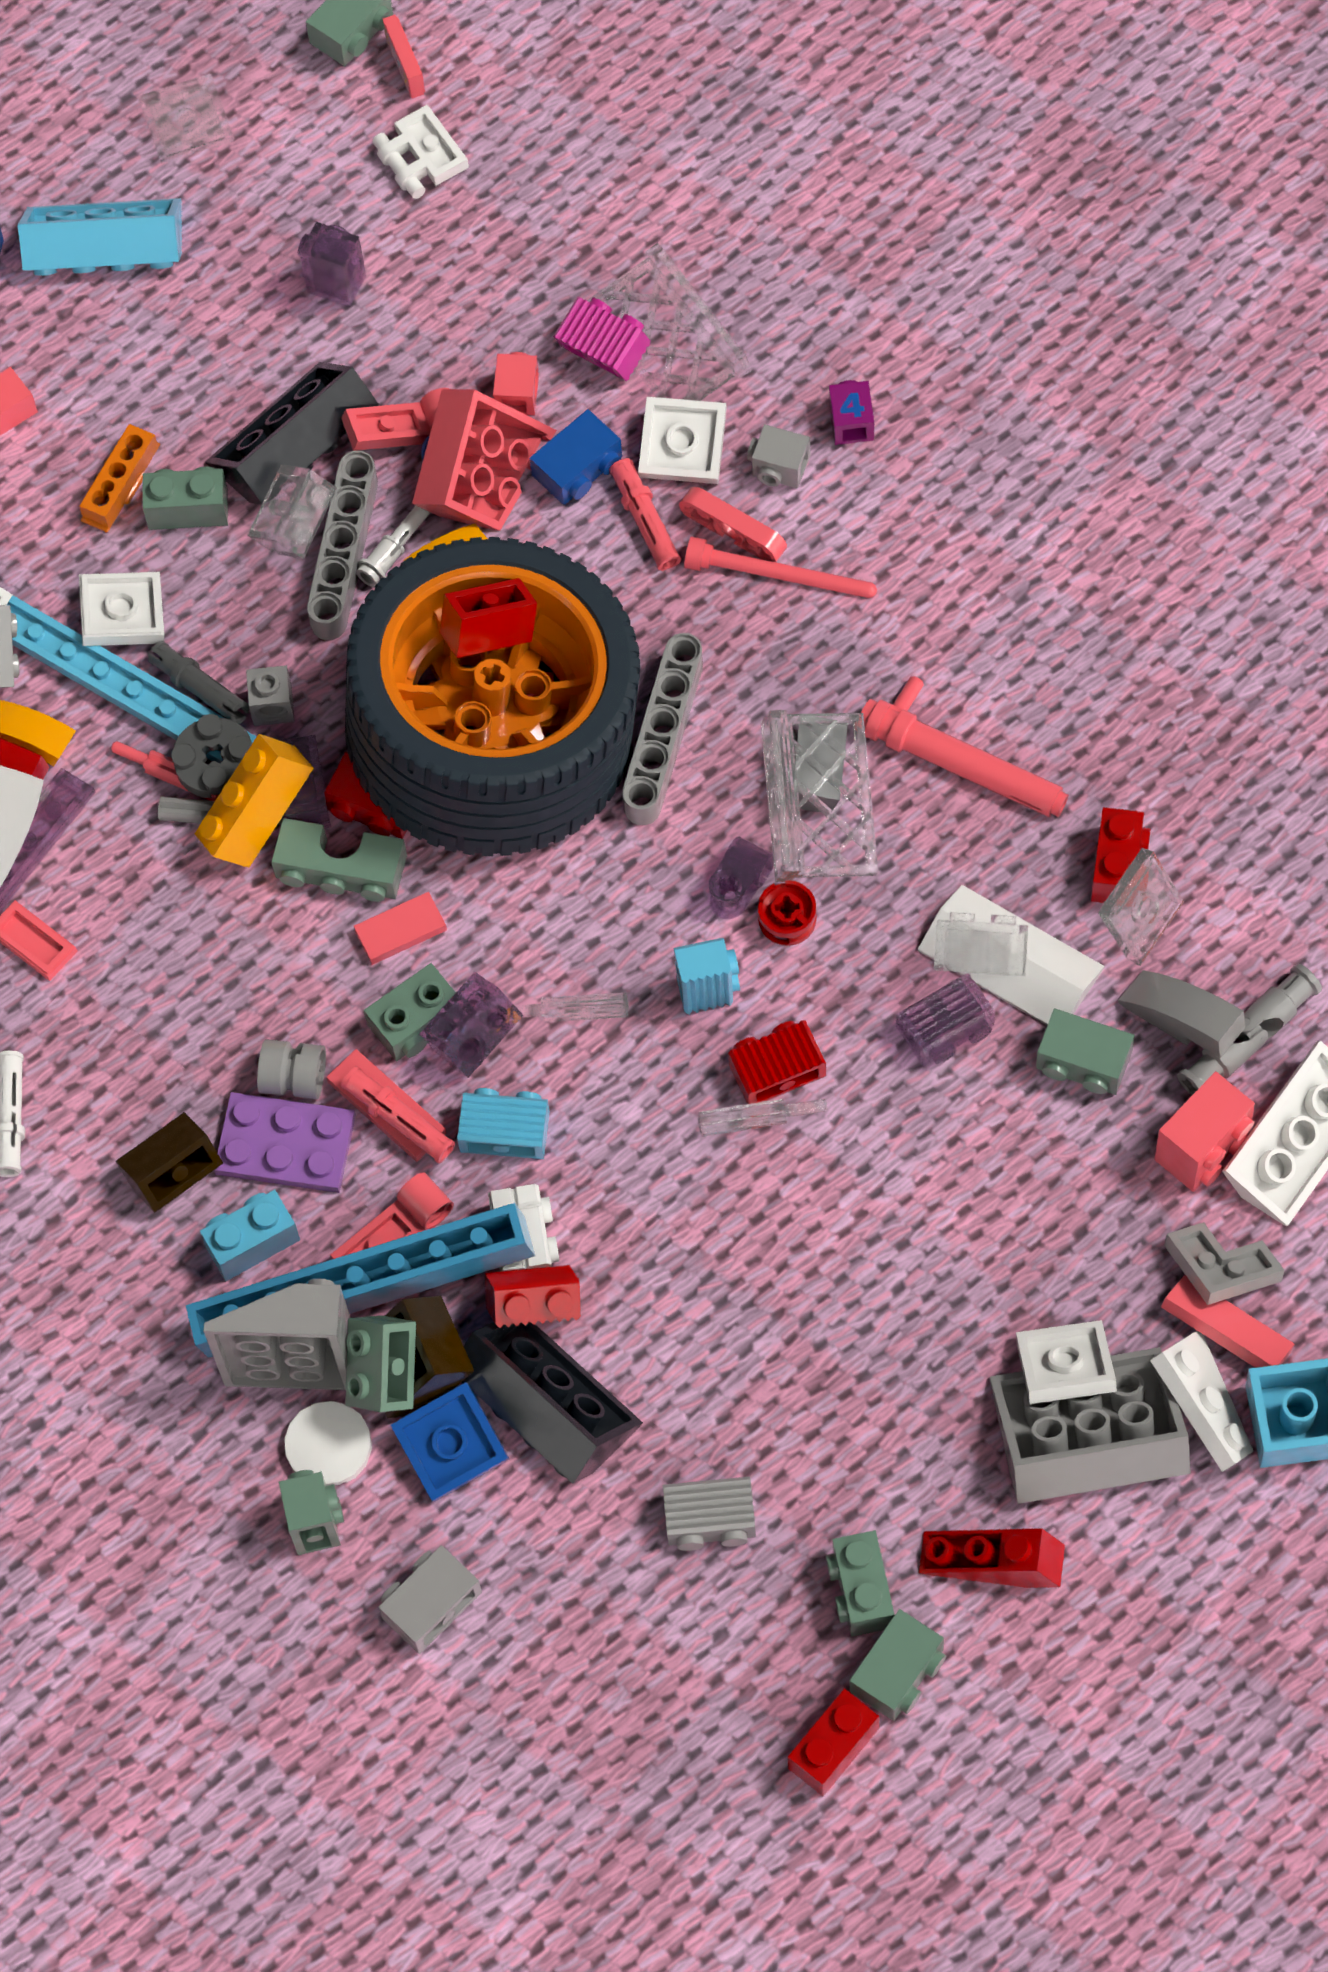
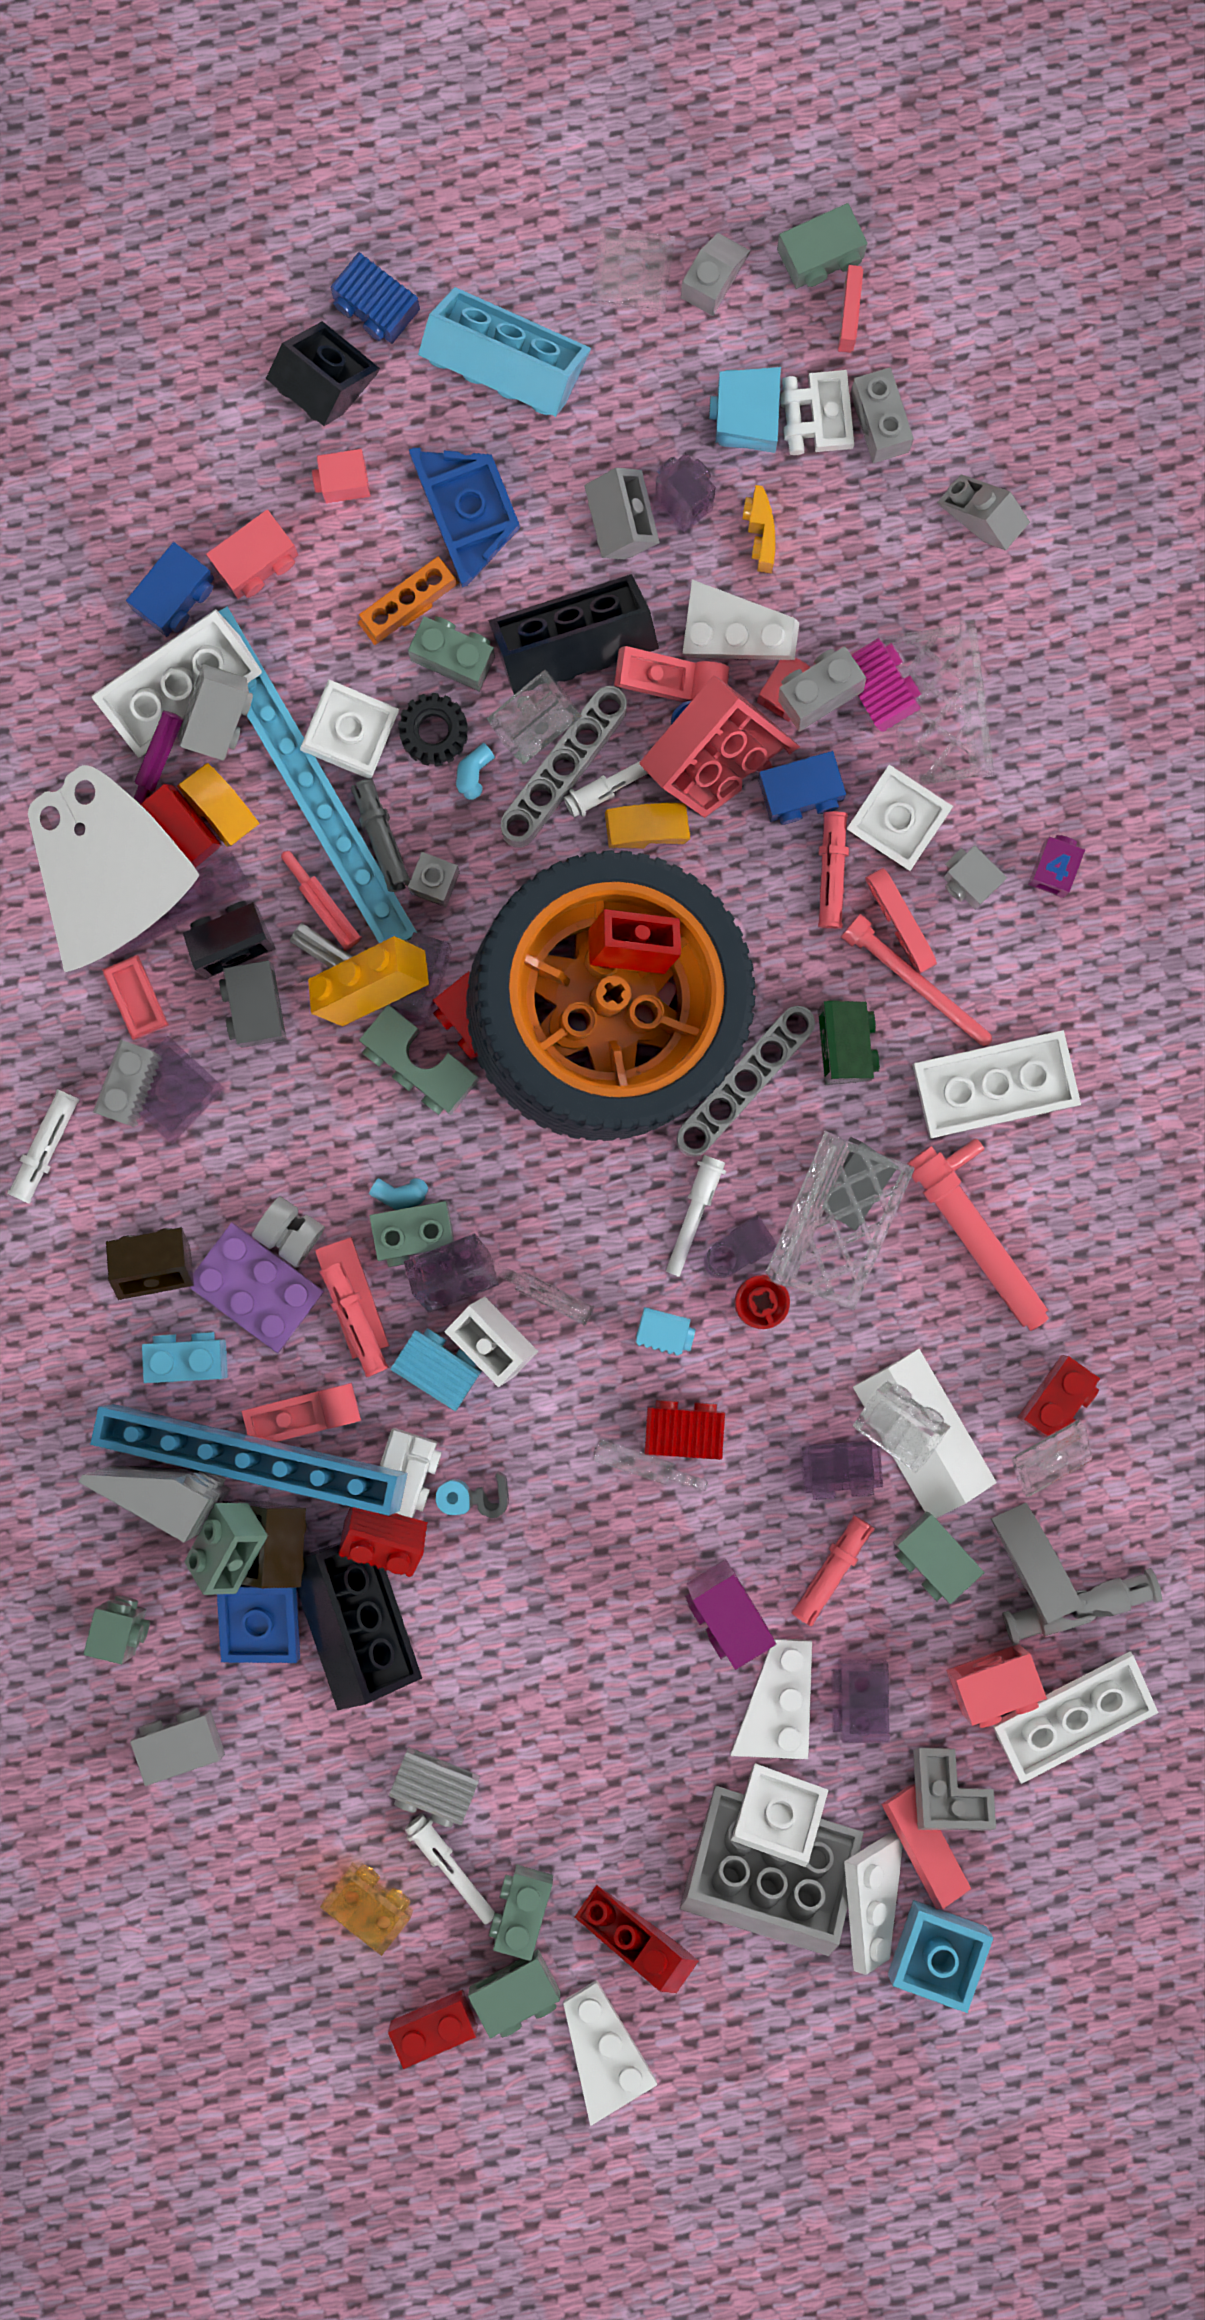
camera: 20 degrees right, 20 degrees up
(65, 1007) = (127, 1083): none -> light grey brick
(100, 839) = (227, 939): none -> black slope
(109, 1005) = (179, 1091): none -> clear purple tile
(134, 375) = (467, 507): none -> blue wing
(152, 883) = (253, 1004): none -> dark grey brick
(196, 741) = (338, 905): dark grey plate -> none
(197, 552) = (425, 708): none -> black tyre
(254, 592) = (468, 771): none -> medium azure arm
(261, 88) = (713, 273): none -> light grey slope
(283, 311) = (621, 513): none -> light grey brick
(329, 1440) = (158, 1569): white tile -> none
(353, 176) = (747, 408): none -> medium azure torso
(367, 995) = (401, 1197): none -> medium azure arm
(400, 928) = (440, 1145): coral tile -> none
(420, 263) = (761, 521): none -> light orange slope
(442, 353) = (736, 628): none -> white wing
(480, 125) = (881, 415): none -> light grey brick
(543, 1068) = (491, 1341): none -> white brick
(547, 355) = (821, 688): none -> light grey brick
(587, 1233) = (457, 1498): none -> leg
(618, 157) = (985, 511): none -> light grey slope
(676, 848) = (701, 1195): none -> white pin
(704, 1660) = (368, 1907): none -> clear yellow brick
(738, 647) = (846, 1042): none -> dark green slope
(748, 1576) = (426, 1838): none -> white pin
(902, 620) = (996, 1084): none -> white plate
(906, 1176) = (731, 1616): none -> magenta brick
(992, 1111) = (841, 1557): none -> coral pin
(1010, 1269) = (780, 1705): none -> white wing
(1022, 1686) = (605, 2054): none -> white wing
(1087, 1220) = (862, 1700): none -> clear purple brick

